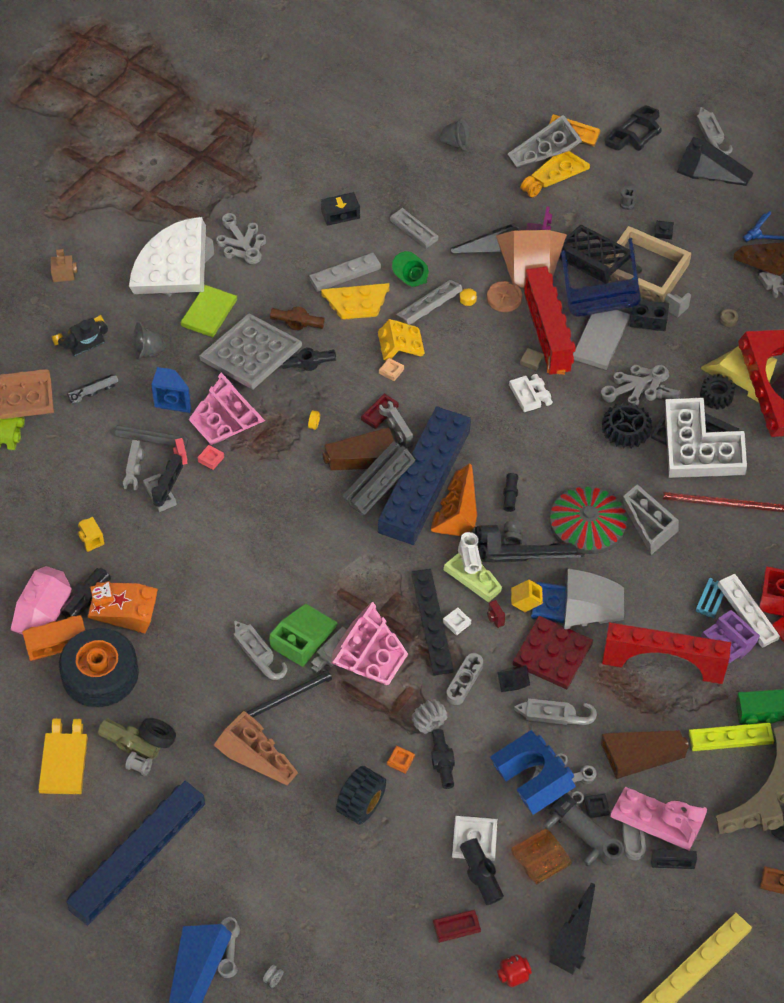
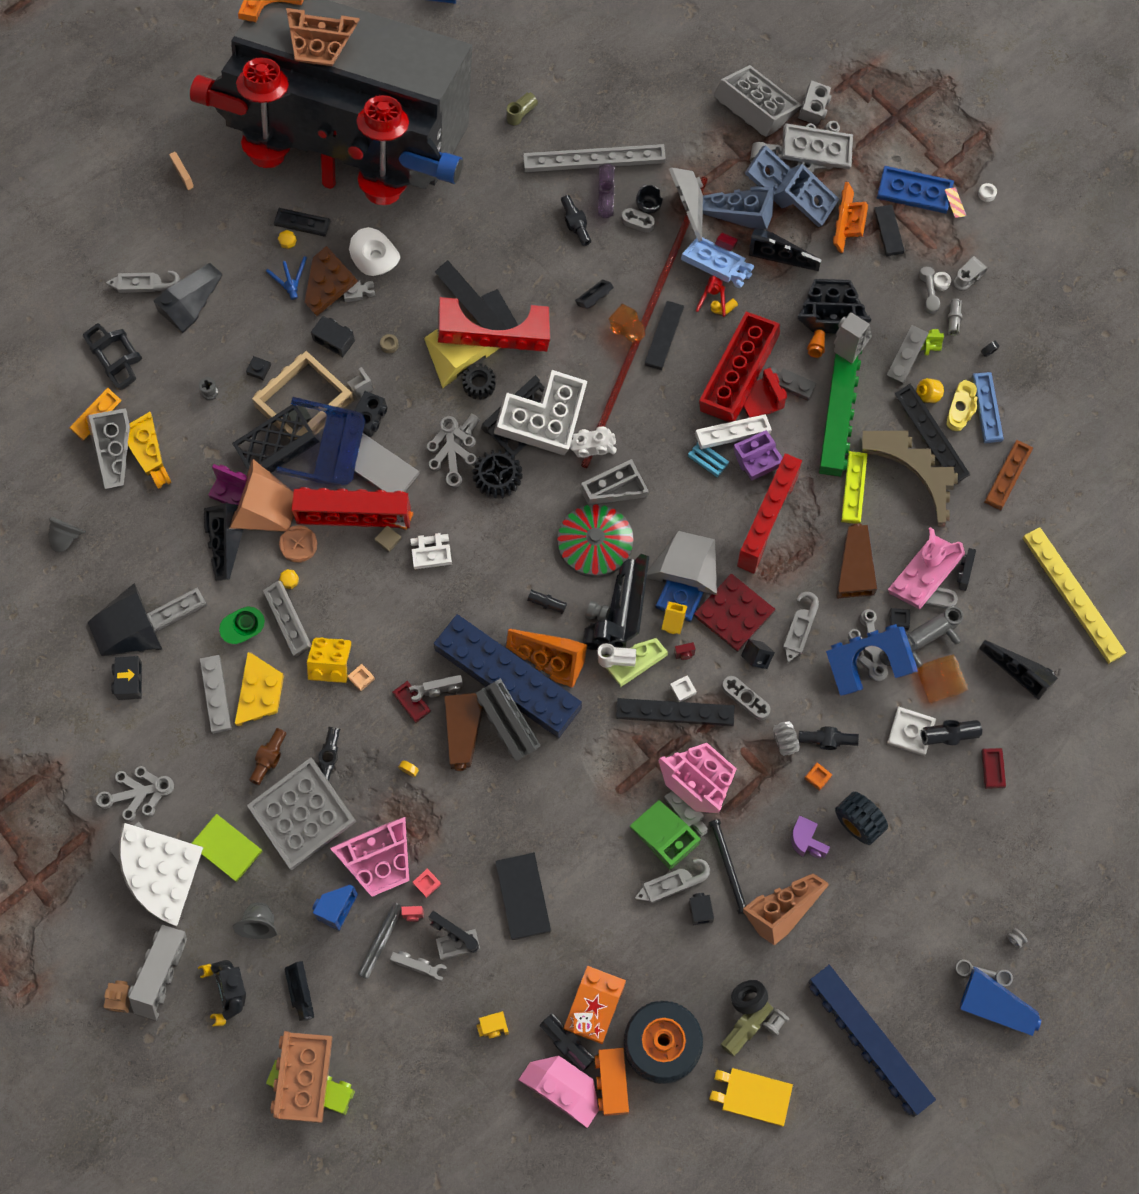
camera: 75 degrees left, 15 degrees up
(88, 286) = (157, 971): none -> light grey wedge
(216, 534) = (523, 896): none -> black tile
(236, 678) = (701, 909): none -> black brick
(330, 753) = (802, 839): none -> medium lavender brick
(387, 196) = (124, 626): none -> black wedge
(514, 970) = (1049, 729): red head -> none
(687, 492) = (593, 442): none -> white brick
(716, 272) = (333, 336): none -> black brick

